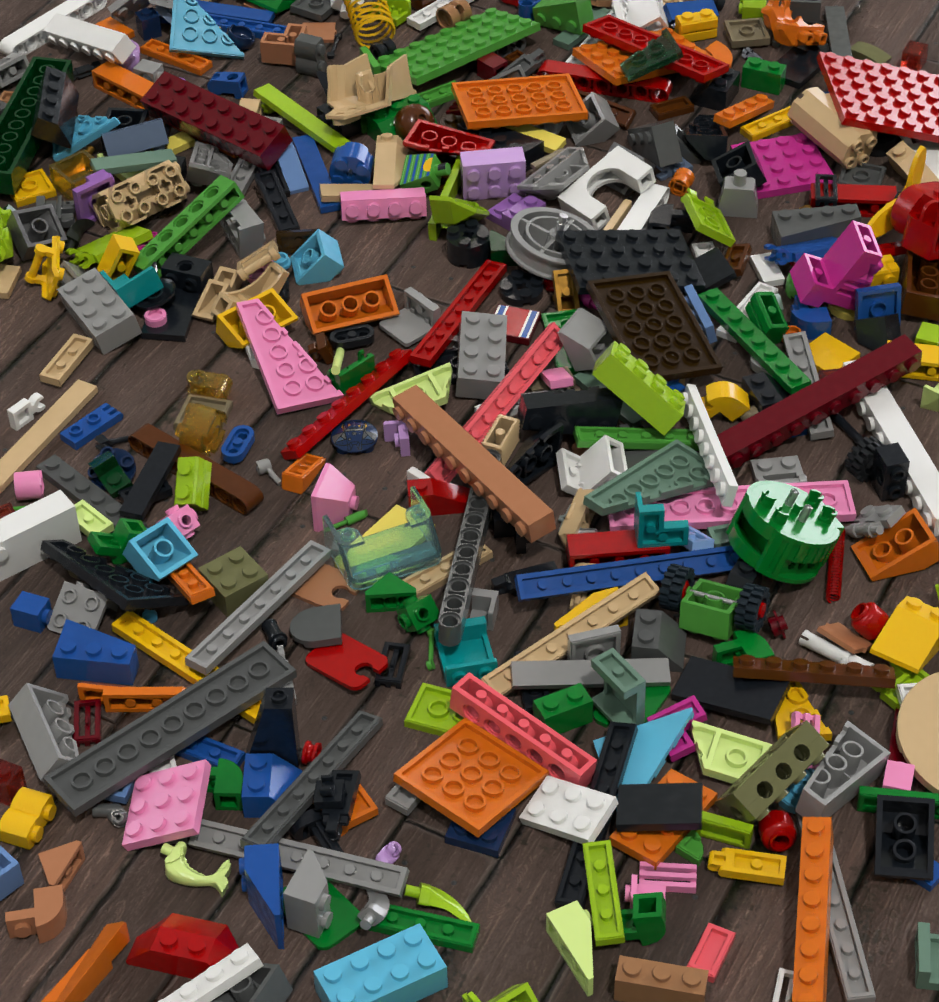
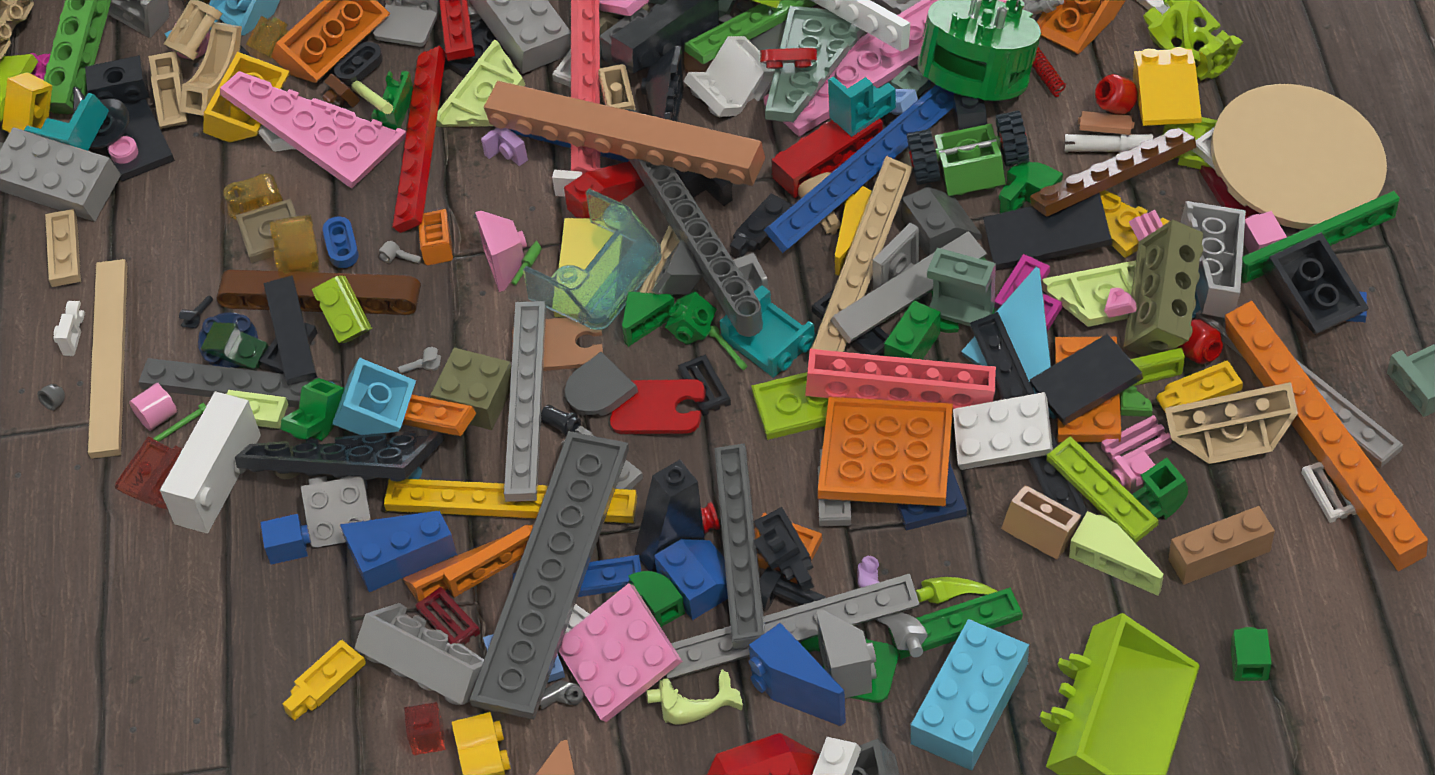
camera: 30 degrees left, 10 degrees up
(91, 426) = (156, 307): blue hinge -> none
(183, 518) = (356, 348): bright pink brick -> none
(225, 548) = (430, 361): none -> light grey hand
(308, 285) = (266, 35): none -> clear yellow bracket
(354, 437) = (455, 170): dark blue dish -> none
(431, 577) = (678, 273): none -> dark grey slope
(537, 887) = (1041, 522): none -> medium nougat brick
(577, 517) = (757, 128): tan piece -> none
(642, 473) = (799, 56): none -> red plate
(712, 950) = (1230, 487): coral tile -> none
(733, 767) = (1119, 303): none -> bright pink tile
(745, 901) = (1233, 423): none -> tan wedge
(777, 625) = (1036, 144): dark red plate -> none

